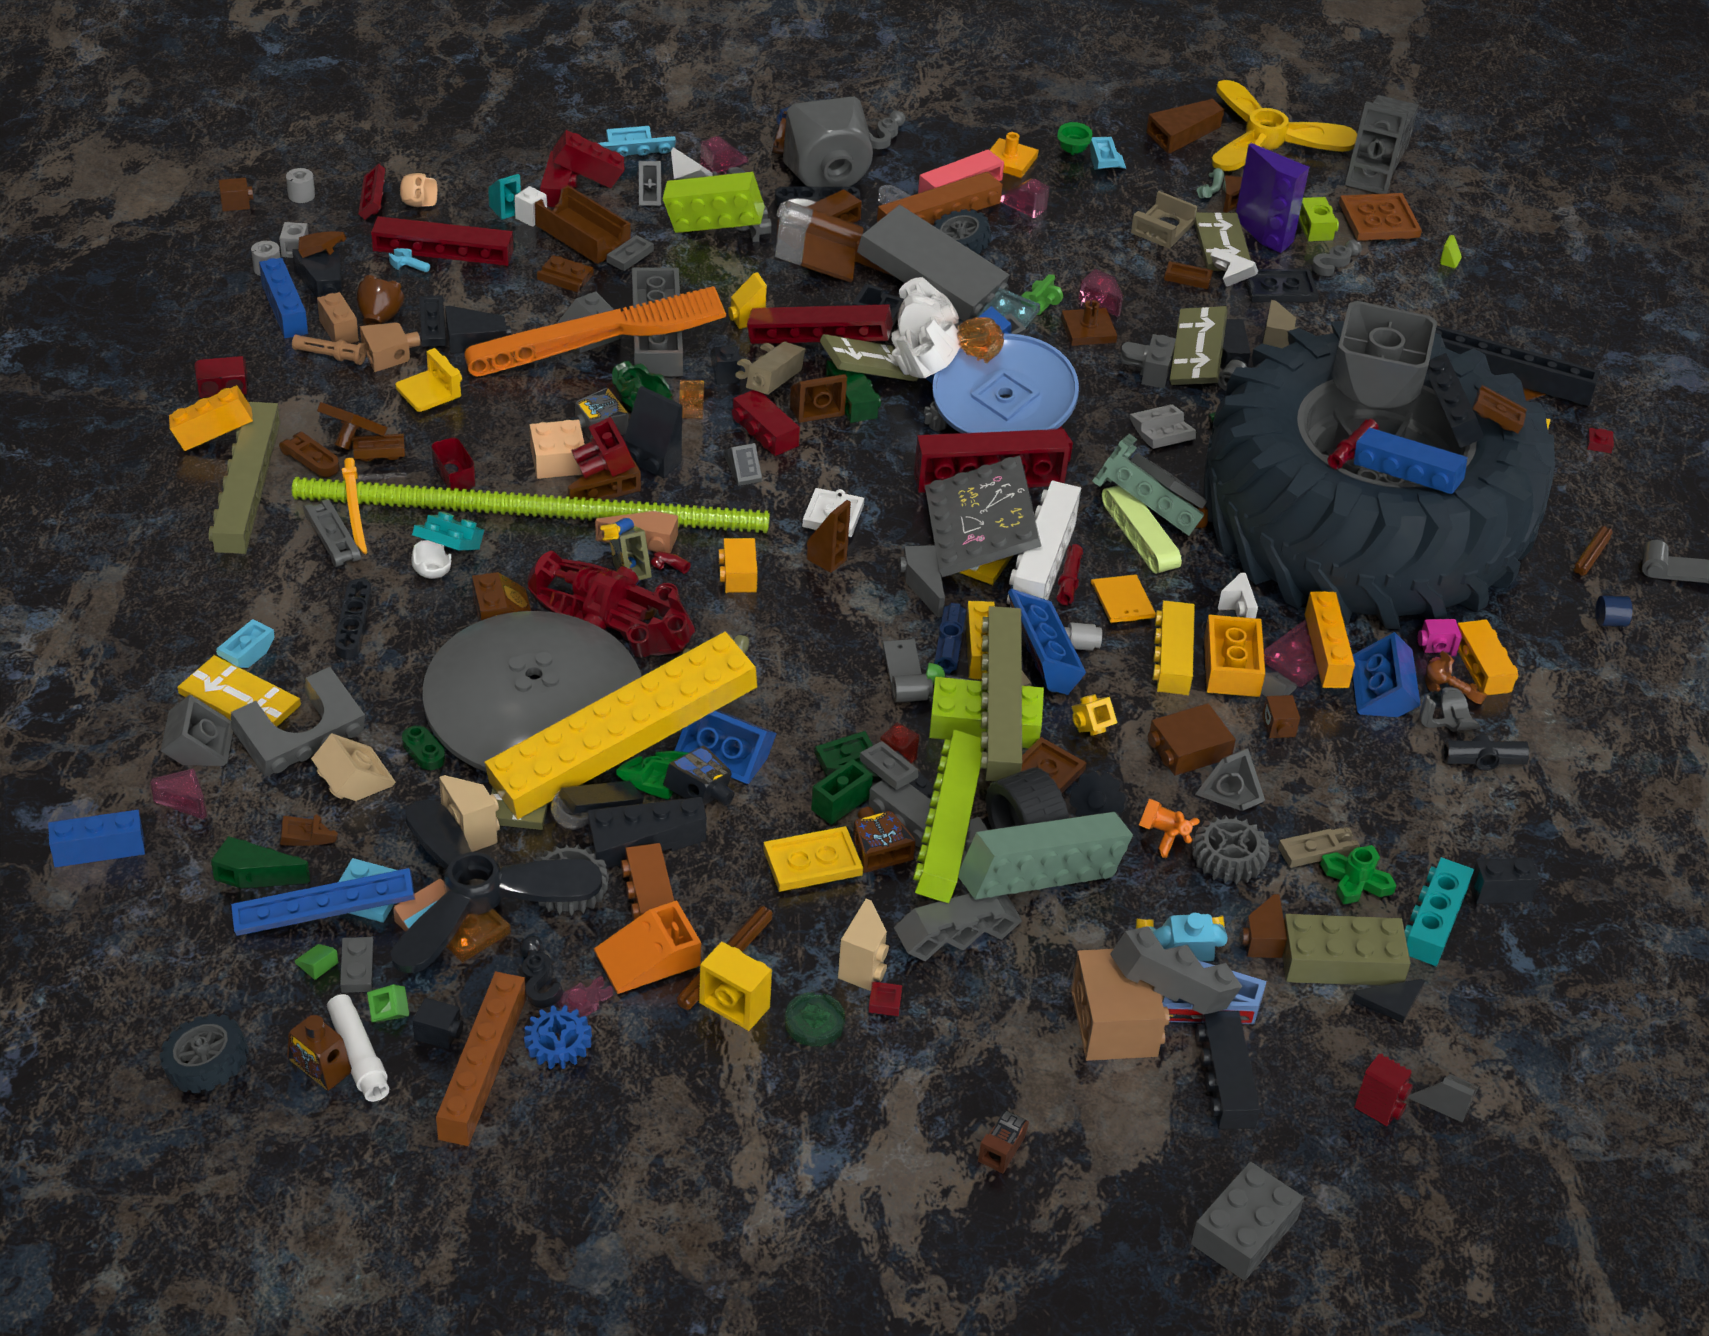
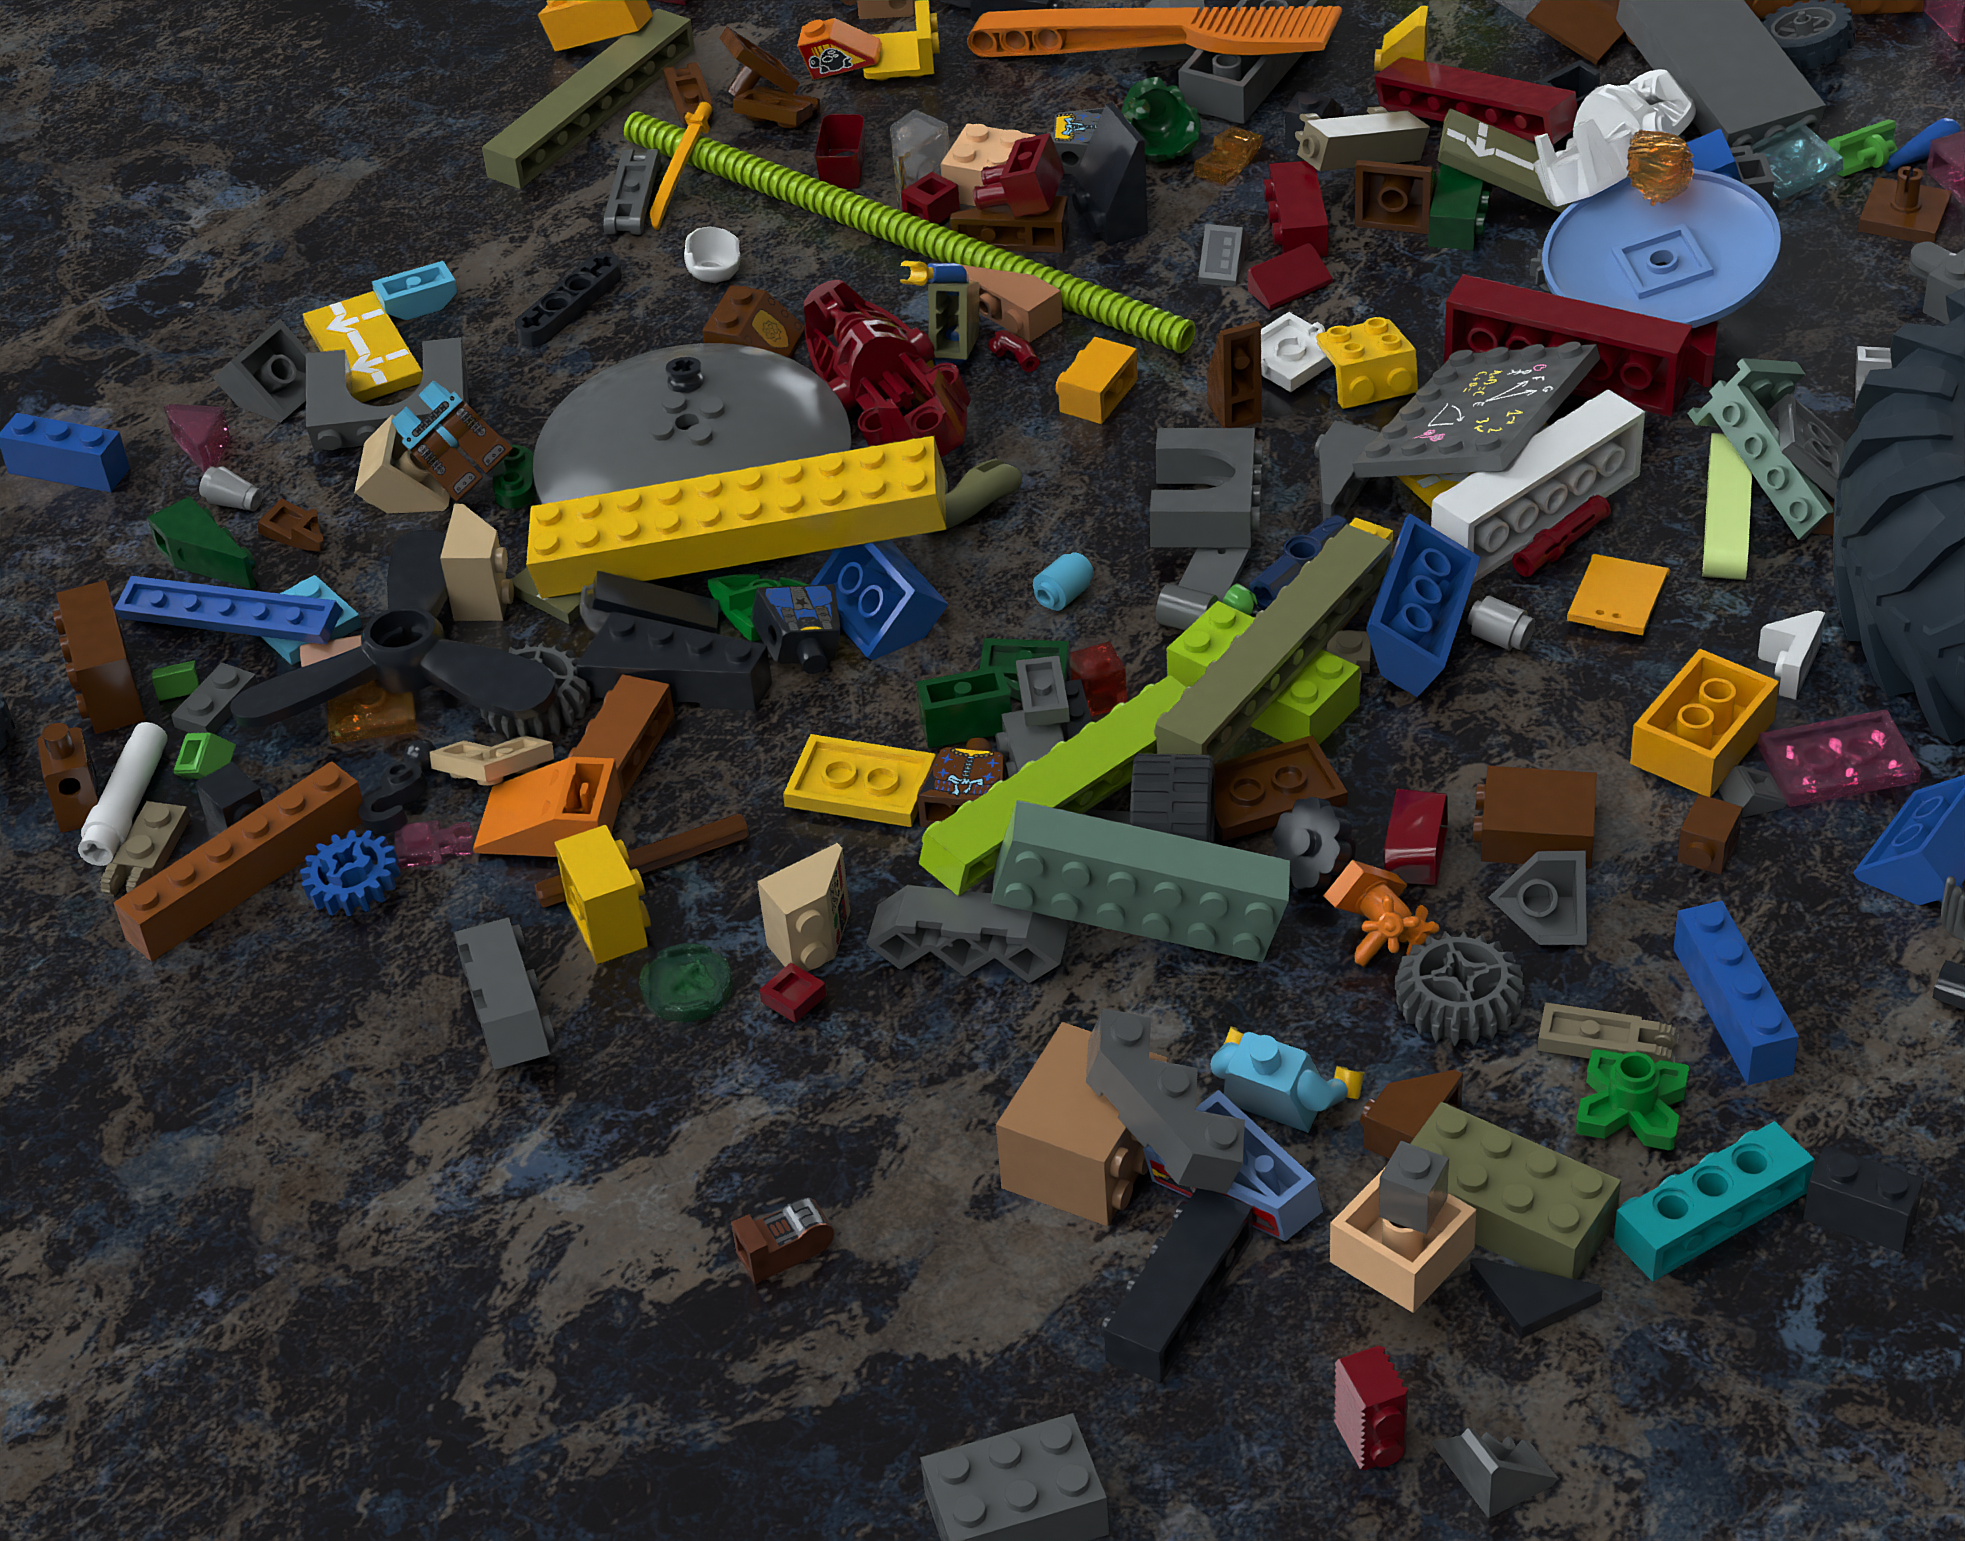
camera: 40 degrees right, 0 degrees up
(240, 822) = (227, 489): none -> light grey cone
(267, 964) = (97, 657): none -> reddish brown brick
(386, 738) = (442, 432): none -> hips
(391, 396) = (836, 47): none -> slope
(401, 1075) = (145, 847): none -> dark tan hinge
(449, 532) = (759, 228): teal plate -> none
(510, 643) = (684, 374): none -> black bush
(514, 457) = (917, 148): none -> clear slope
(539, 479) = (931, 198): none -> dark red brick
(585, 935) = (491, 763): none -> tan plate
(724, 1068) = (504, 993): none -> dark grey brick
(793, 466) = (1288, 276): none -> dark red slope
(825, 696) = (1063, 581): none -> medium azure brick
(861, 589) = (1210, 516): none -> dark grey arch
(890, 499) = (1370, 361): none -> yellow bracket
(1071, 281) = (1919, 146): none -> blue piece
(1093, 714) = (1413, 712): yellow brick -> none
(1142, 774) = (1415, 837): none -> dark red piece
(1175, 647) = (1626, 684): yellow brick -> none
(1329, 640) = (1870, 748): light orange brick -> none
(1334, 992) = (1396, 1258): none -> light nougat brick
(1341, 962) = (1413, 1187): none -> dark grey brick
(1362, 797) = (1735, 993): none -> blue brick

